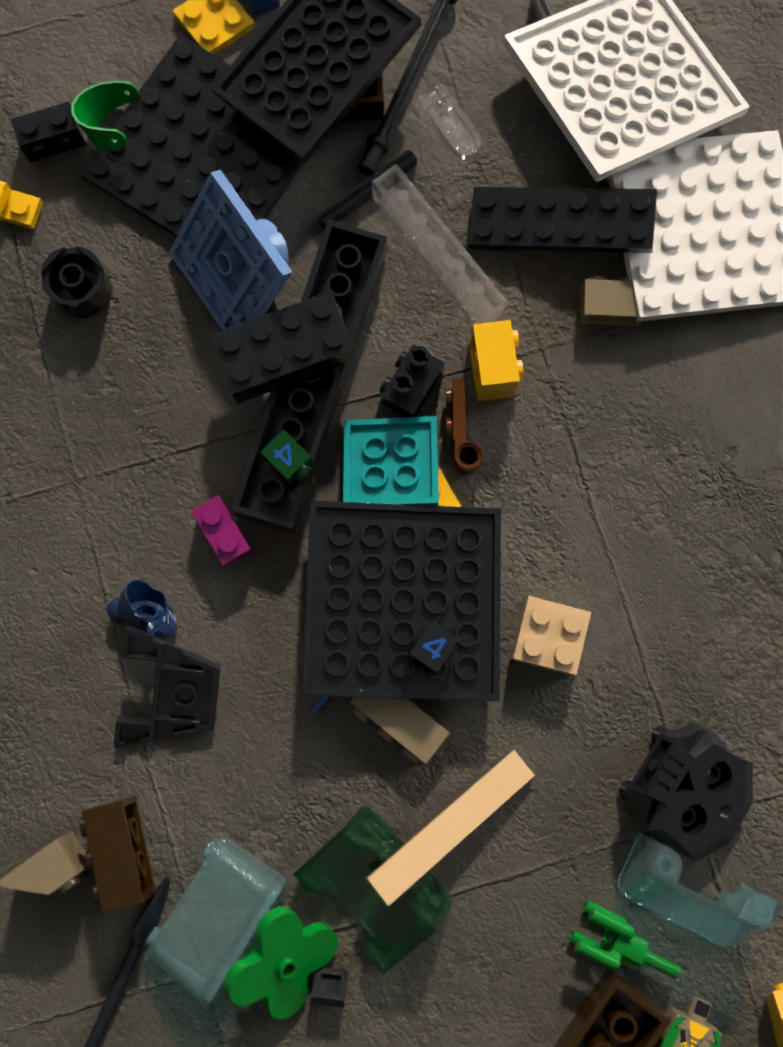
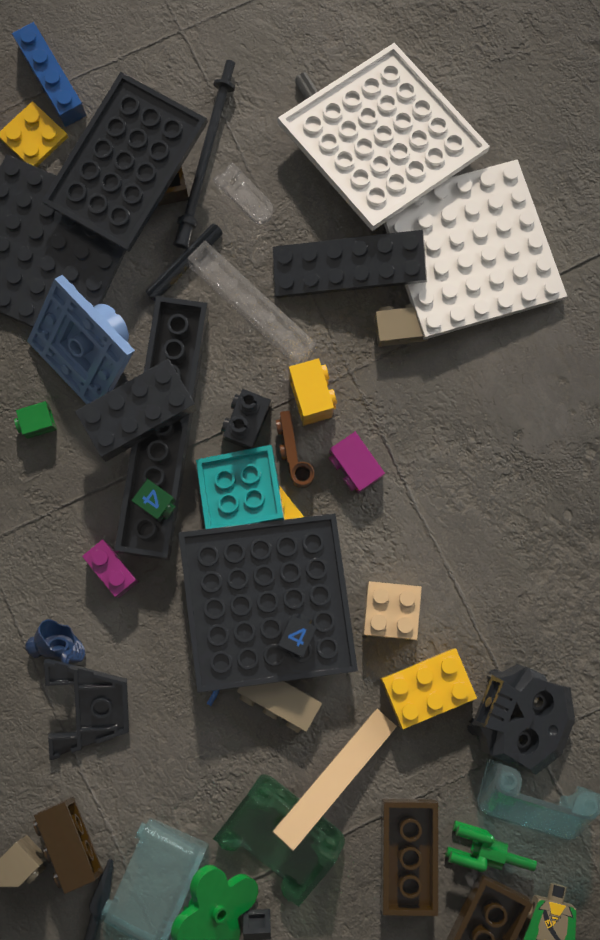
camera: 10 degrees left, 0 degrees up
(162, 344) = (35, 420): none -> green brick
(527, 937) = (409, 857): none -> dark brown brick
(533, 454) = (356, 463): none -> magenta brick
(580, 736) = (428, 688): none -> yellow brick

